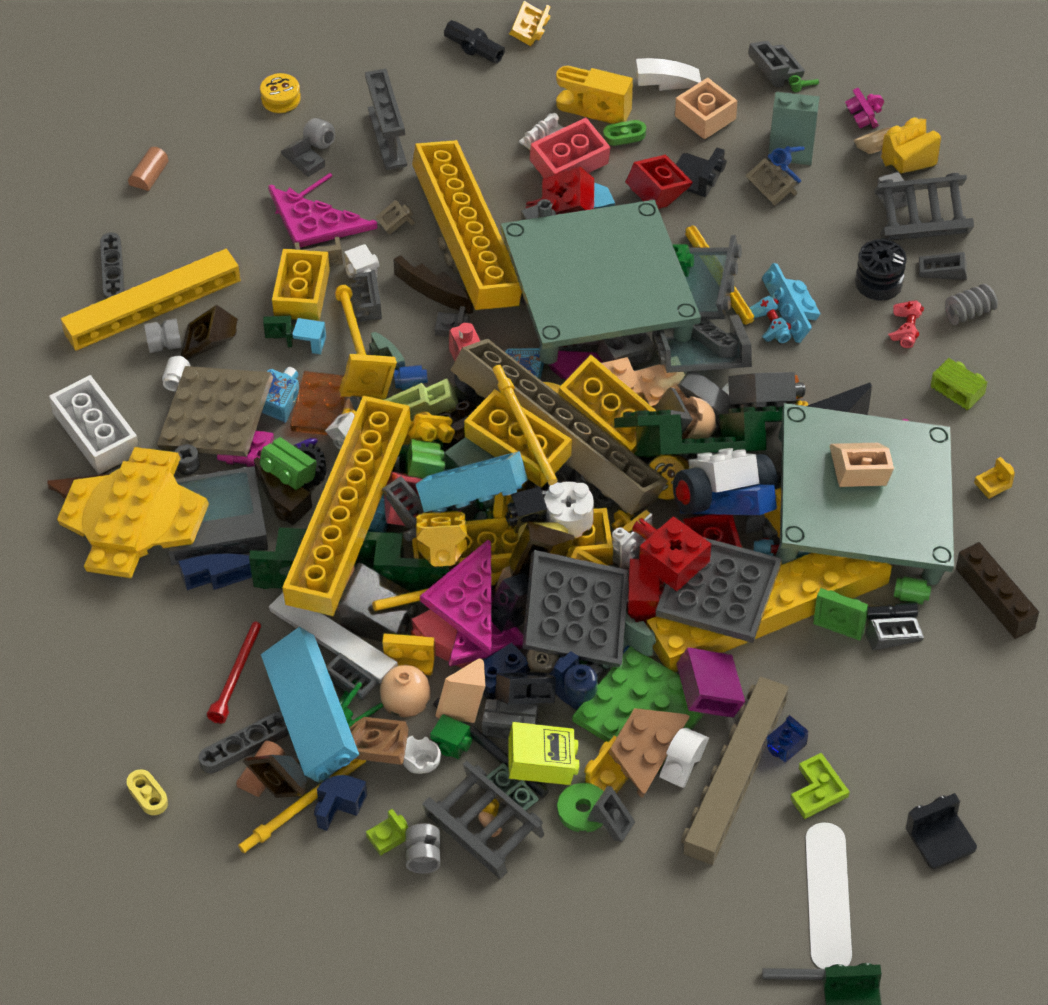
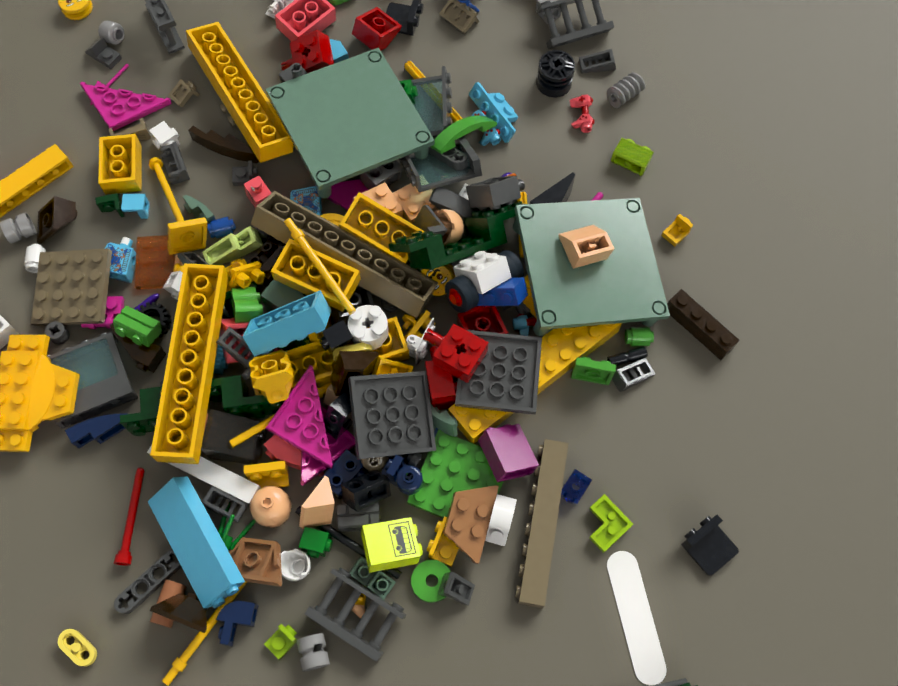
camera: 15 degrees left, 15 degrees up
(717, 320) = (446, 139): none -> bright green slope

